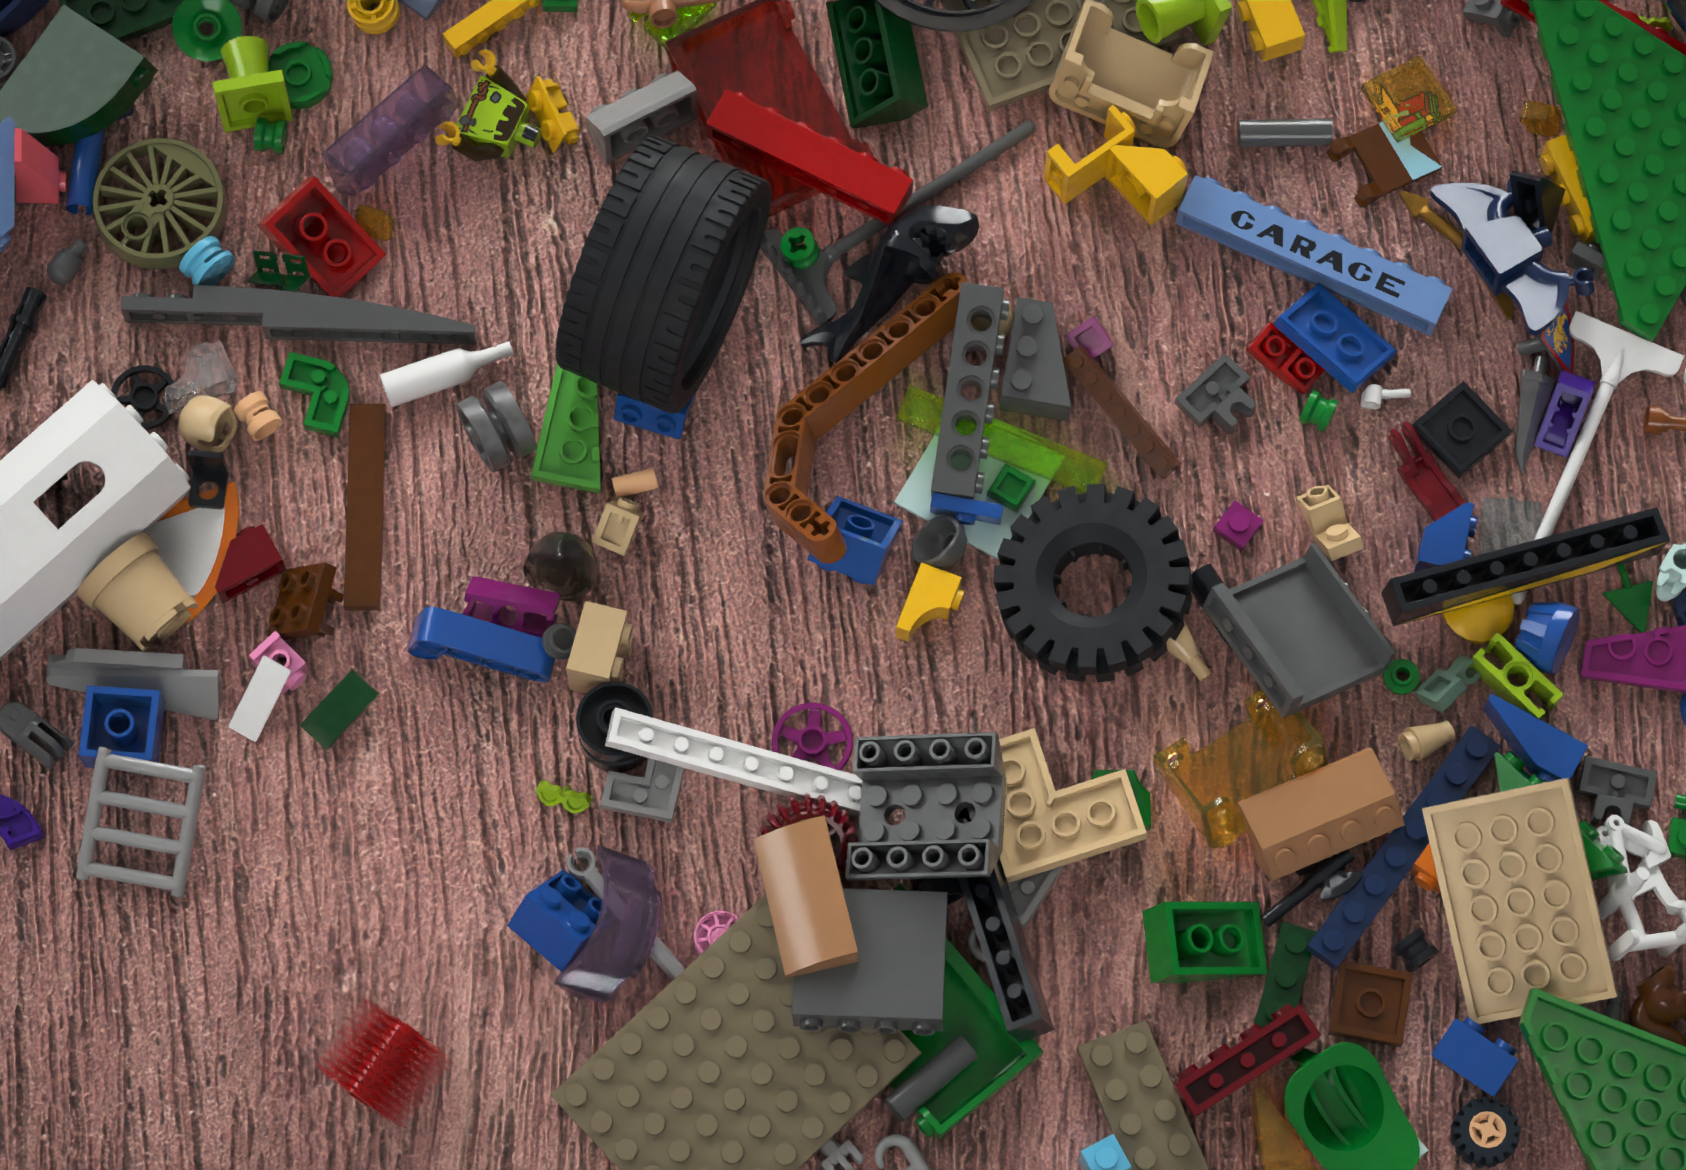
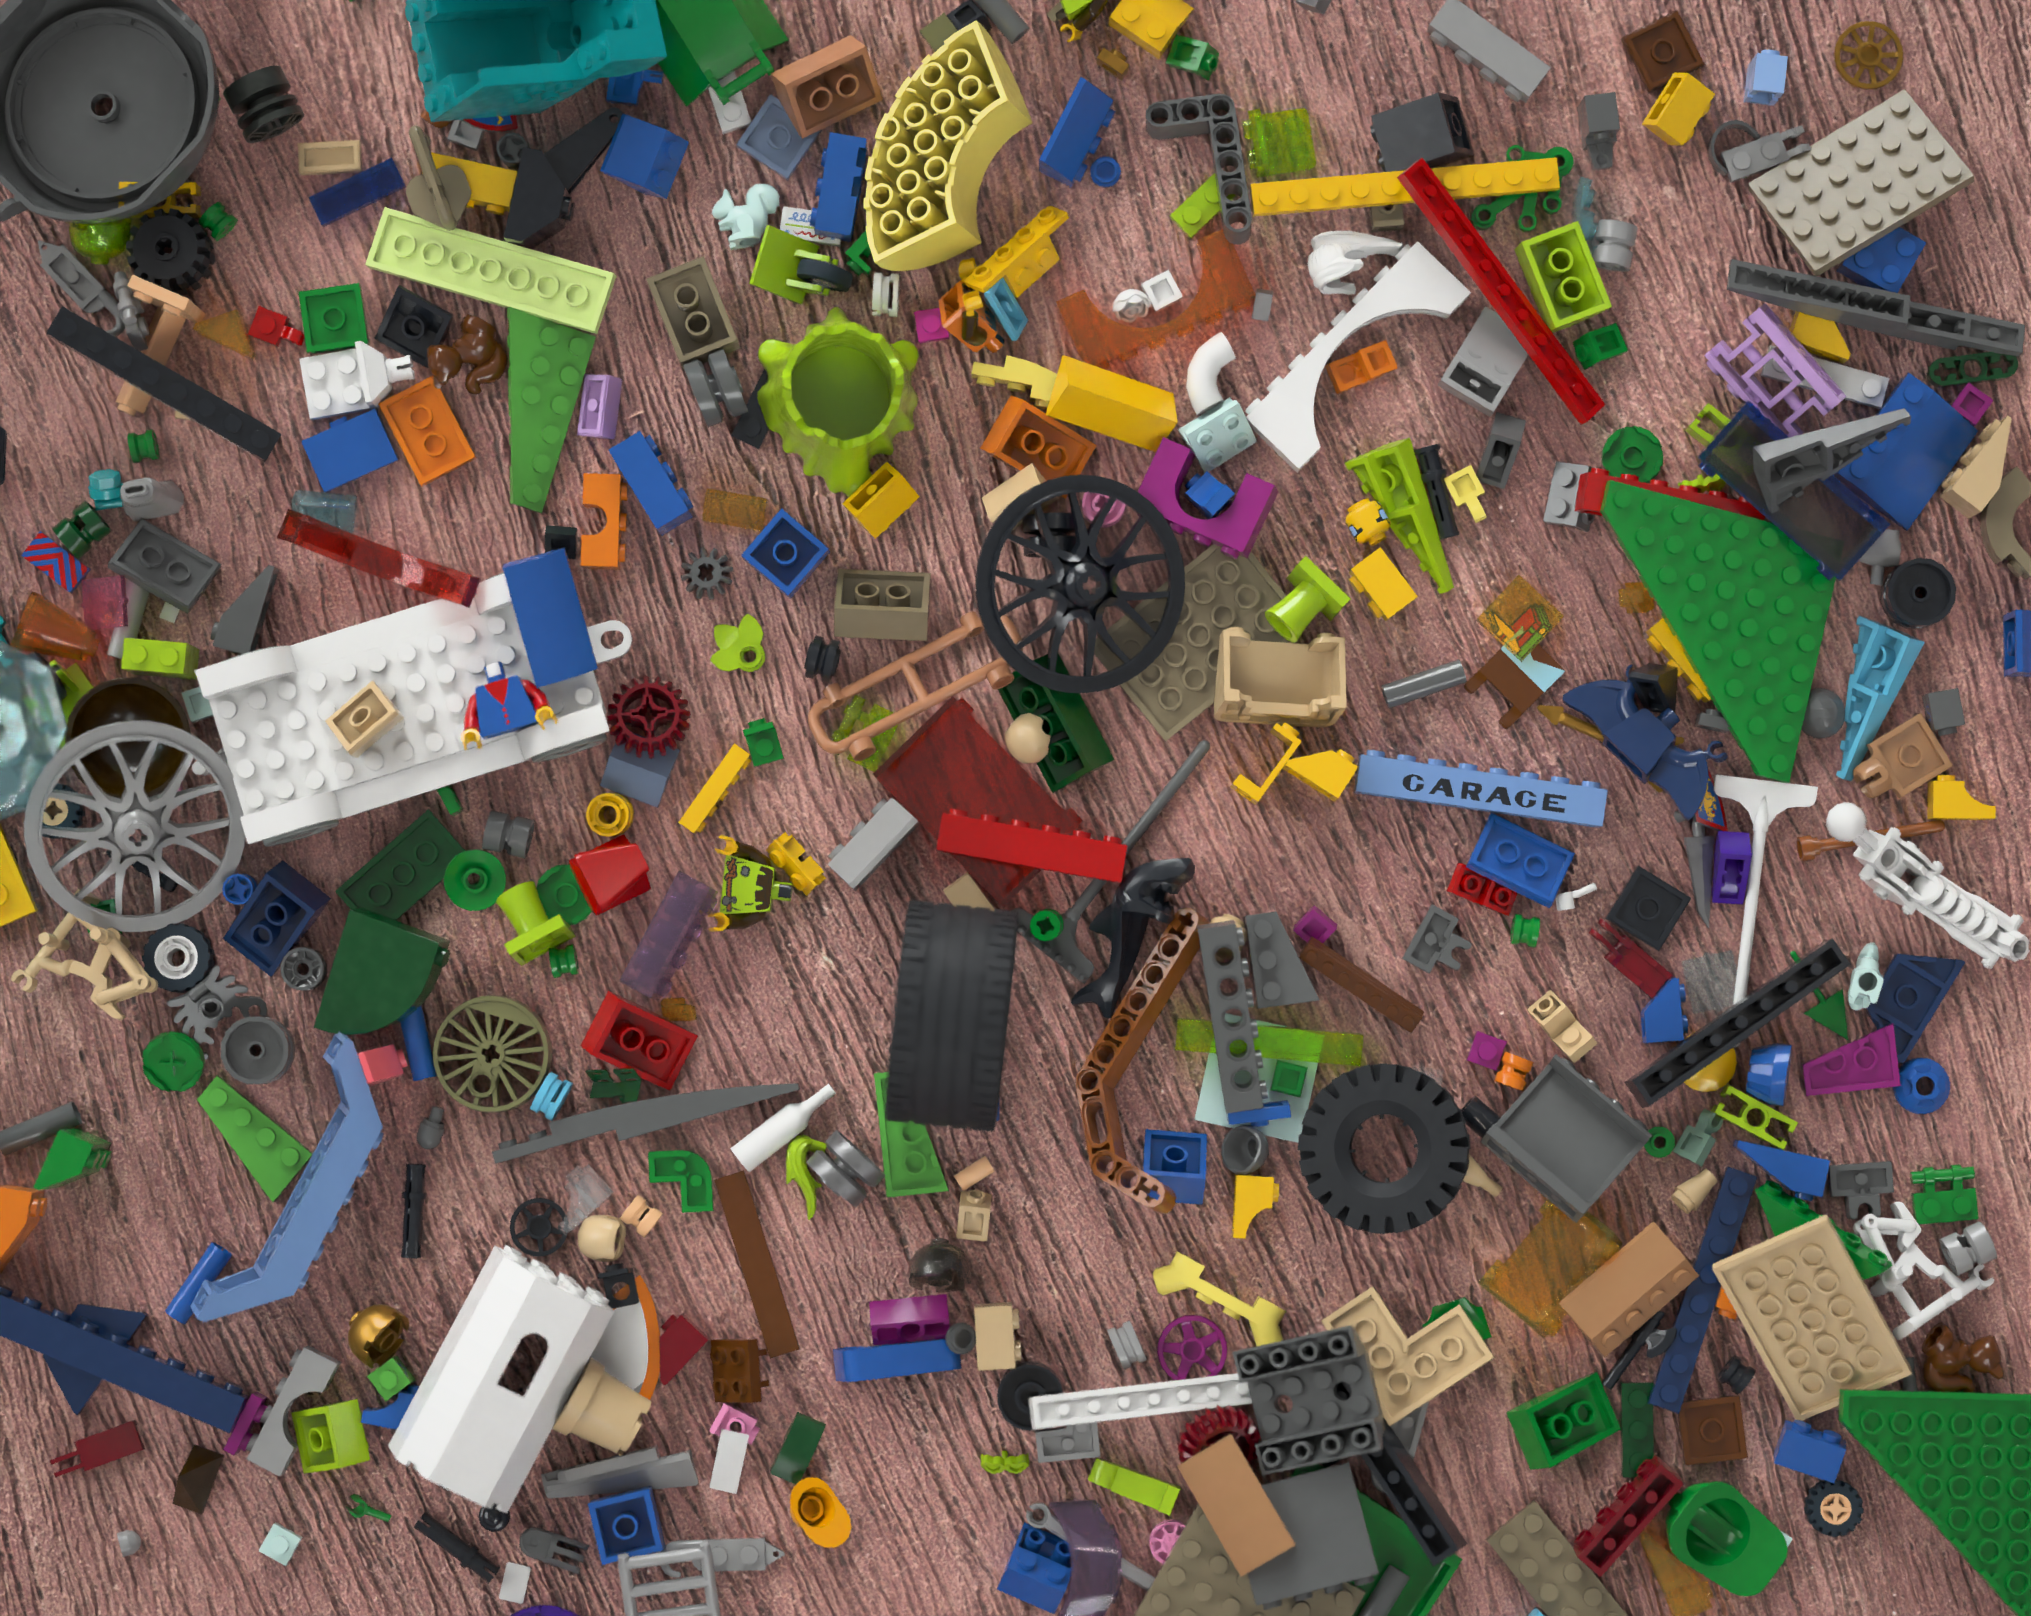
camera: 15 degrees left, 15 degrees up
(227, 803) = (729, 1554): none -> light grey plate
(338, 779) = (819, 1513): none -> light orange piece
(352, 59) = (611, 874): none -> red piece
(444, 421) = (797, 1168): none -> lime piece
(700, 864) = (1135, 1485): none -> lime leg
(741, 708) = (1126, 1345): none -> light grey wheel
(833, 655) = (1185, 1274): none -> light yellow plate
(841, 60) = (1027, 739): none -> tan hair
(1262, 552) = (1513, 1071): none -> orange wheel

